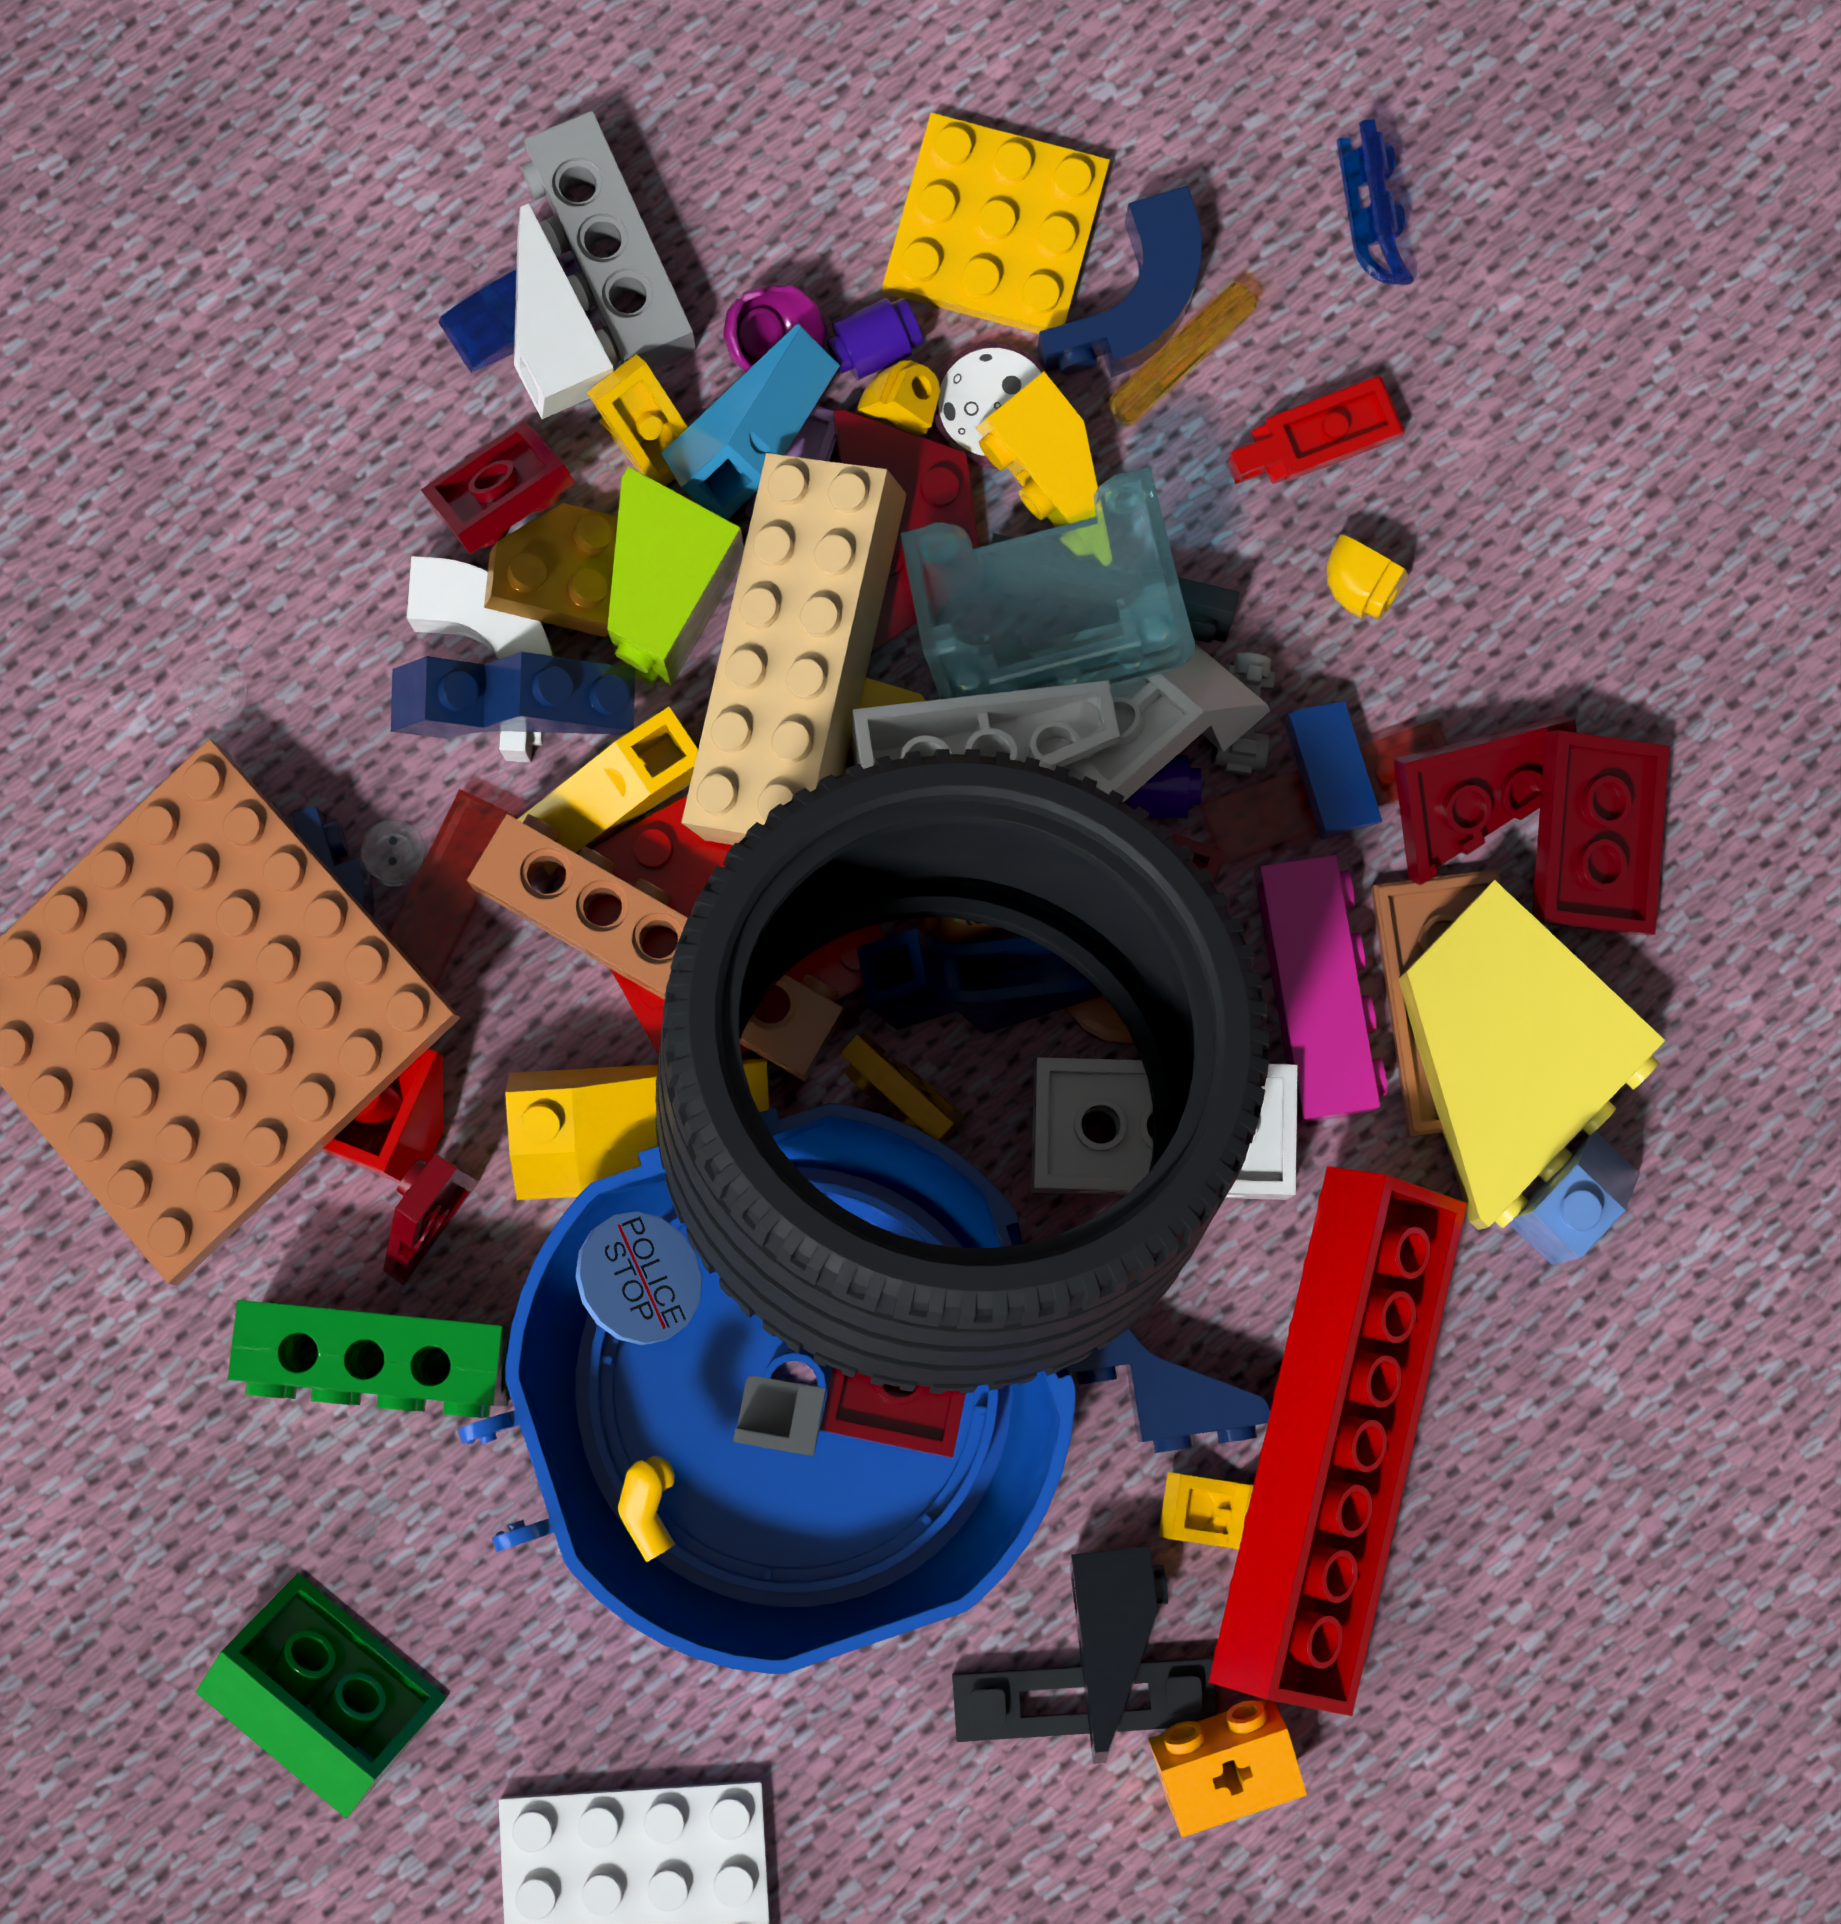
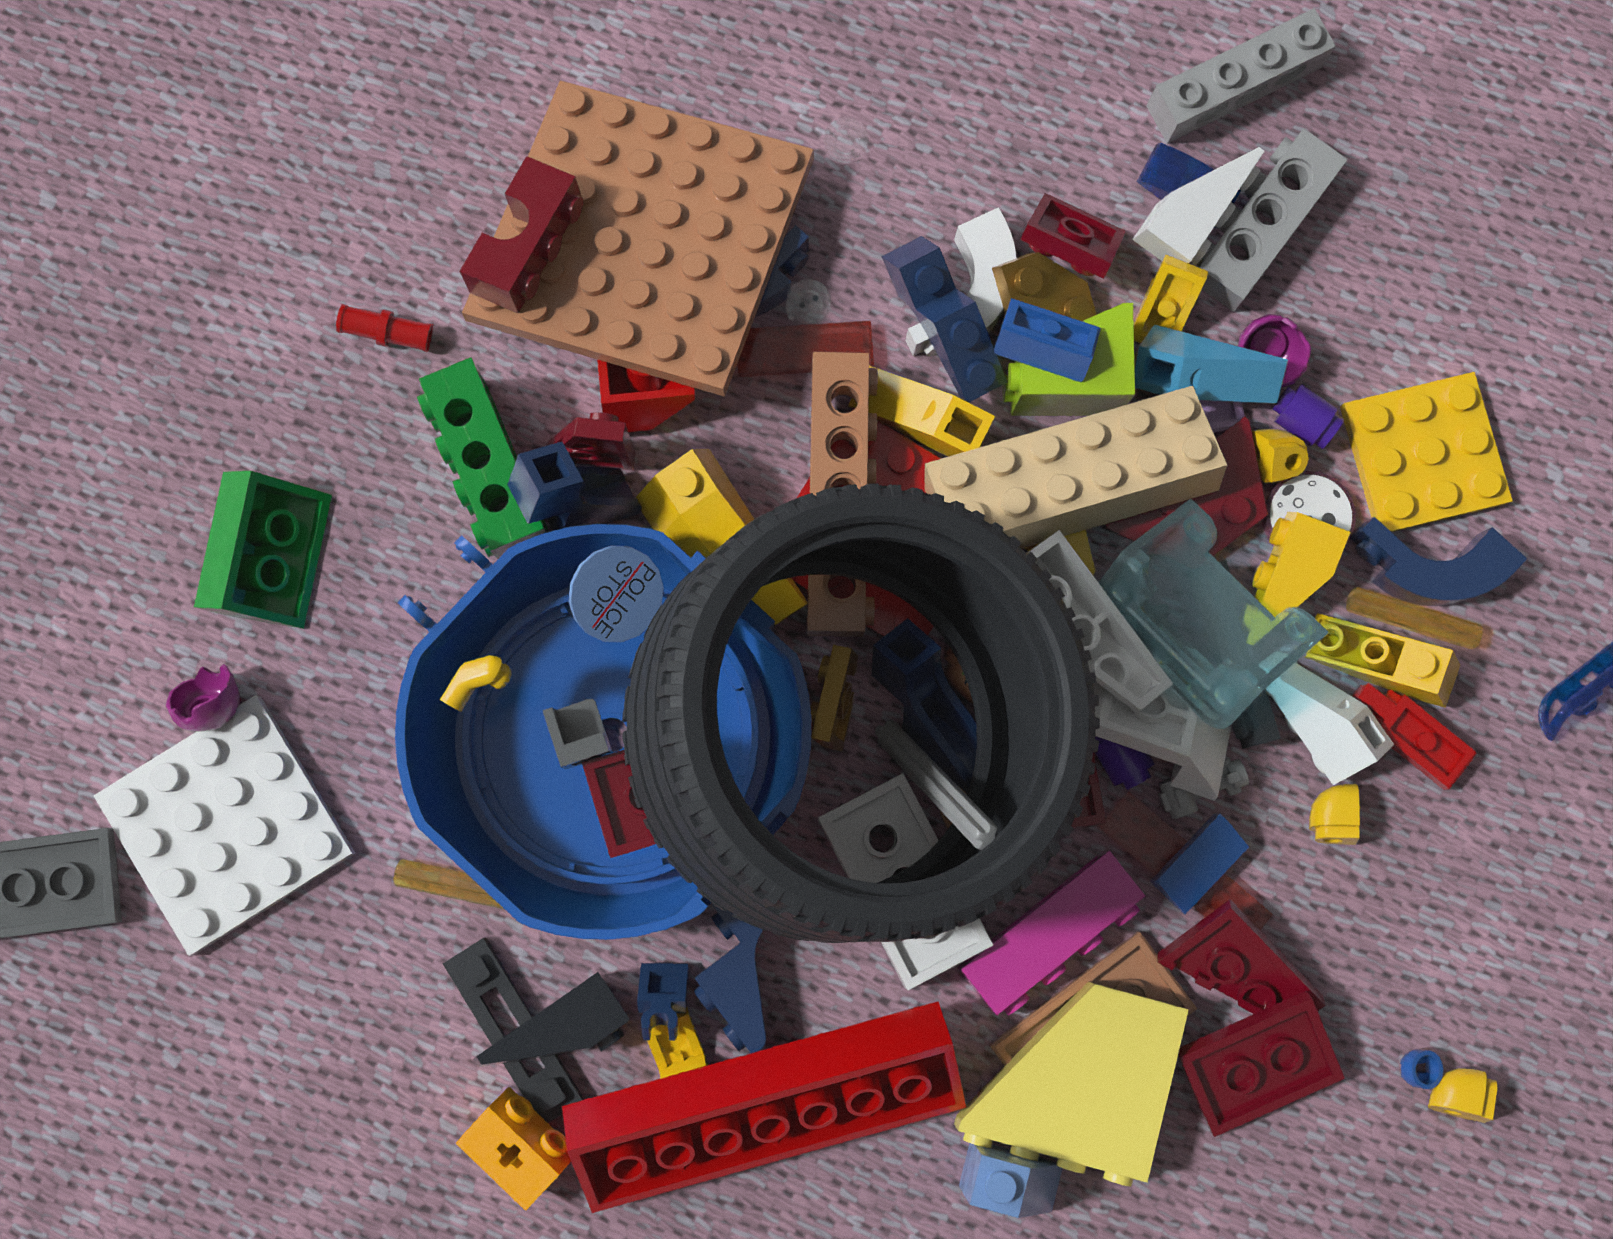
camera: 60 degrees right, 0 degrees up
(123, 1393) = (384, 327): none -> red pin
(152, 1193) = (511, 268): none -> dark red arch
(413, 175) = (1240, 75): none -> light grey brick
(471, 1866) = (204, 701): none -> magenta hair
(476, 1273) = (566, 494): none -> dark blue arch
(616, 593) = (1047, 340): none -> blue slope
(861, 1686) = (441, 882): none -> clear yellow axle
(1075, 1024) = (937, 785): none -> light grey axle
(1142, 1494) = (661, 996): none -> dark blue plate
(1215, 414) = (1387, 660): none -> yellow slope
(1254, 523) = (1330, 723): none -> white slope
(1718, 657) = (1422, 1079): none -> blue hinge
(1761, 619) = (1465, 1095): none -> yellow piece

